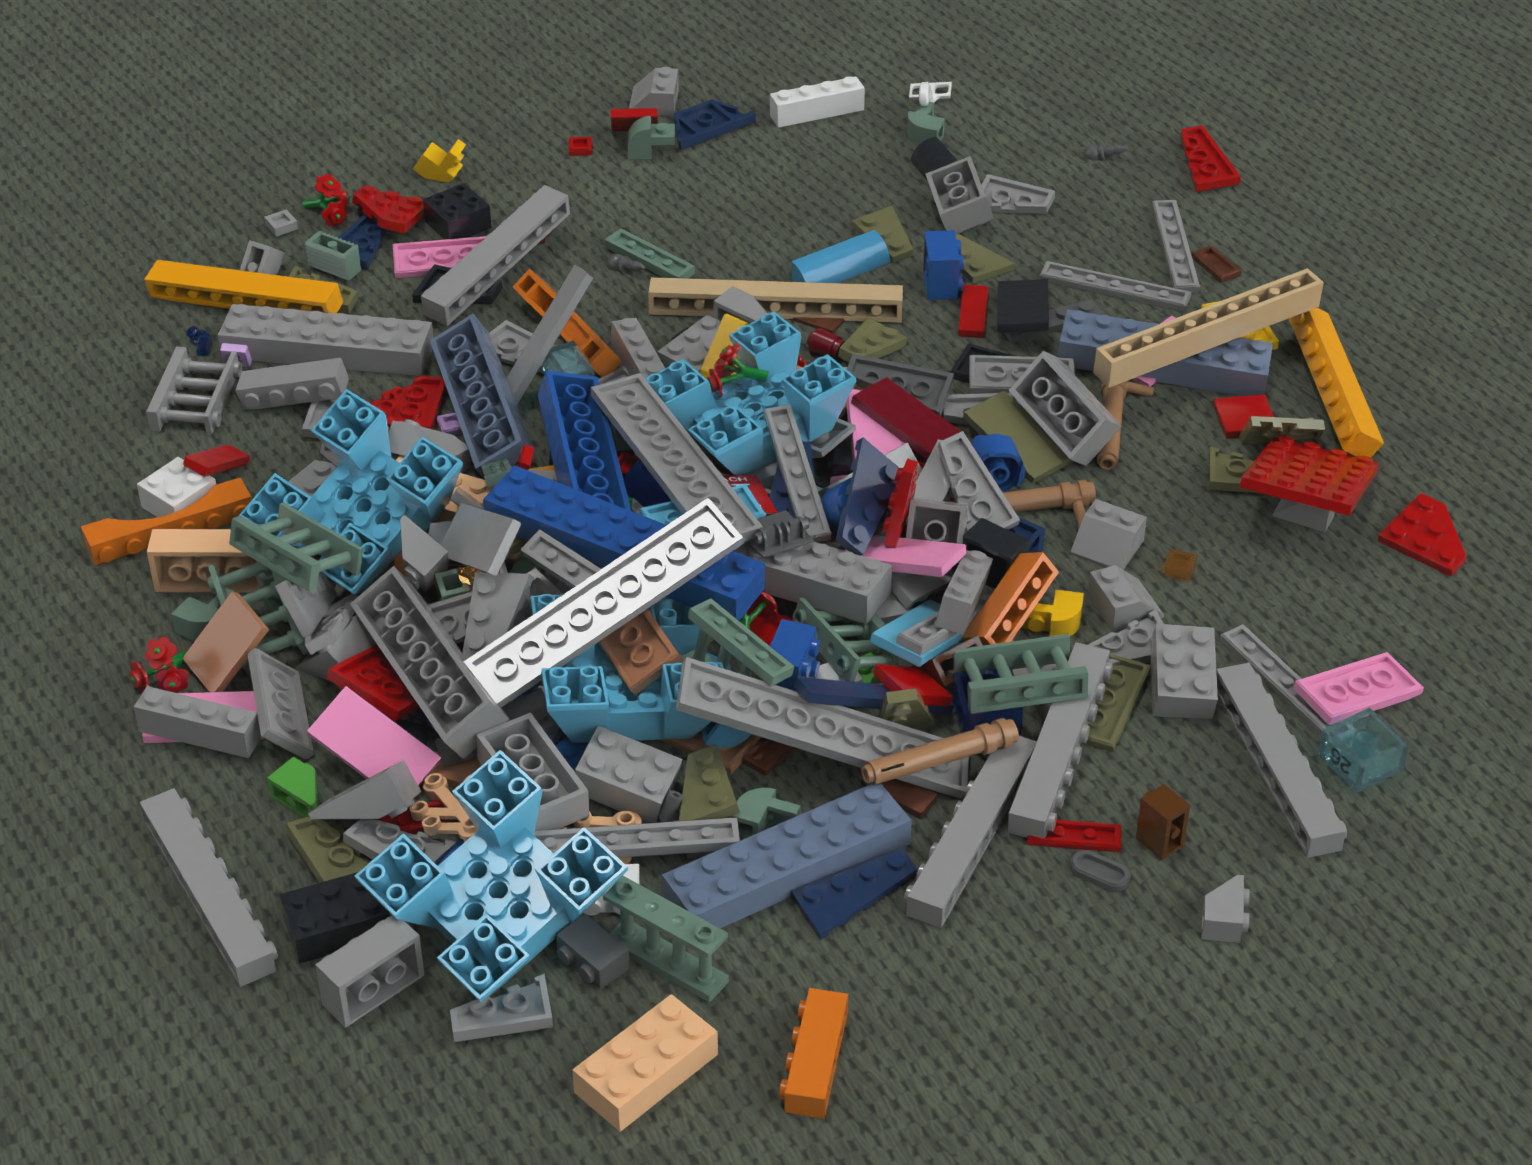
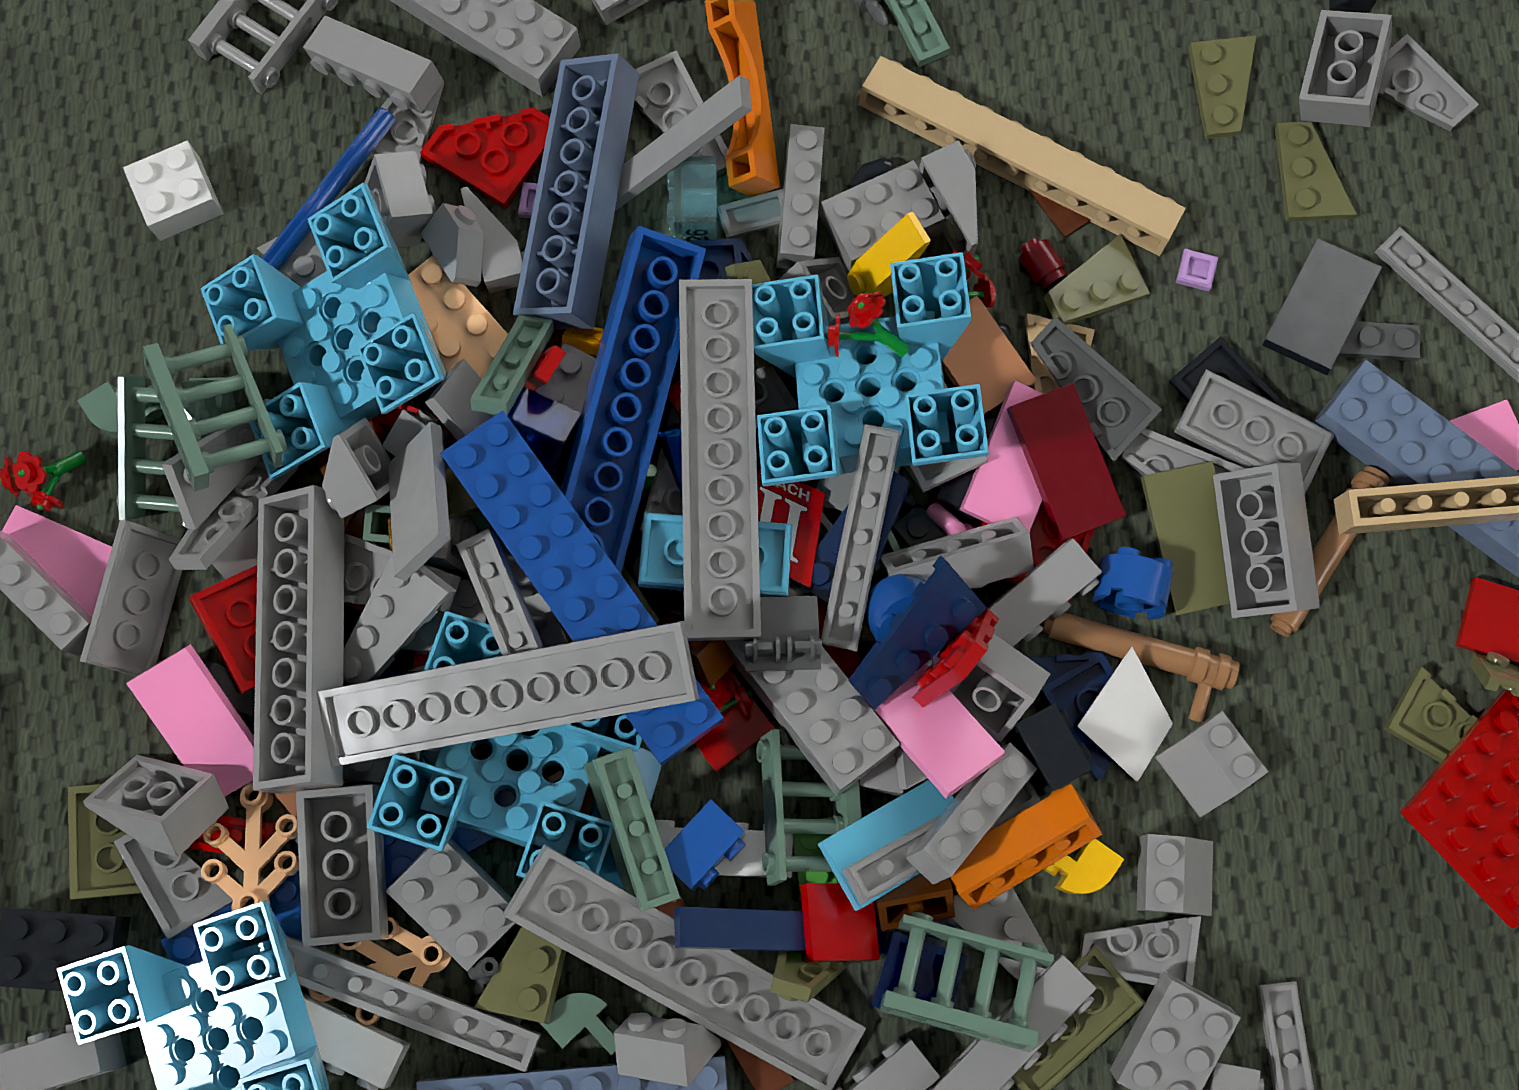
camera: 25 degrees right, 35 degrees up
(117, 538) = (214, 231): orange arch -> none
(182, 559) = (138, 322): light nougat brick -> none
(216, 460) = (231, 161): red tile -> none
(225, 643) = (108, 486): nougat tile -> none
(295, 786) = (106, 734): bright green slope -> none
(302, 442) = (329, 187): none -> blue axle
(640, 651) = (535, 766): nougat tile -> none
(830, 777) = (663, 1049): none -> light grey slope
(842, 260) = (1135, 118): dark azure brick -> none
(930, 320) = (1196, 270): none -> lavender tile
(942, 265) = (1256, 191): blue brick -> none
(973, 311) = (1259, 276): red tile -> none
(974, 484) = (1077, 636): light grey wing -> none
(983, 739) = (871, 1060): medium nougat cylinder -> none
(1034, 524) = (1128, 717): none -> white sticker
(1180, 564) = (1274, 847): clear orange plate -> none

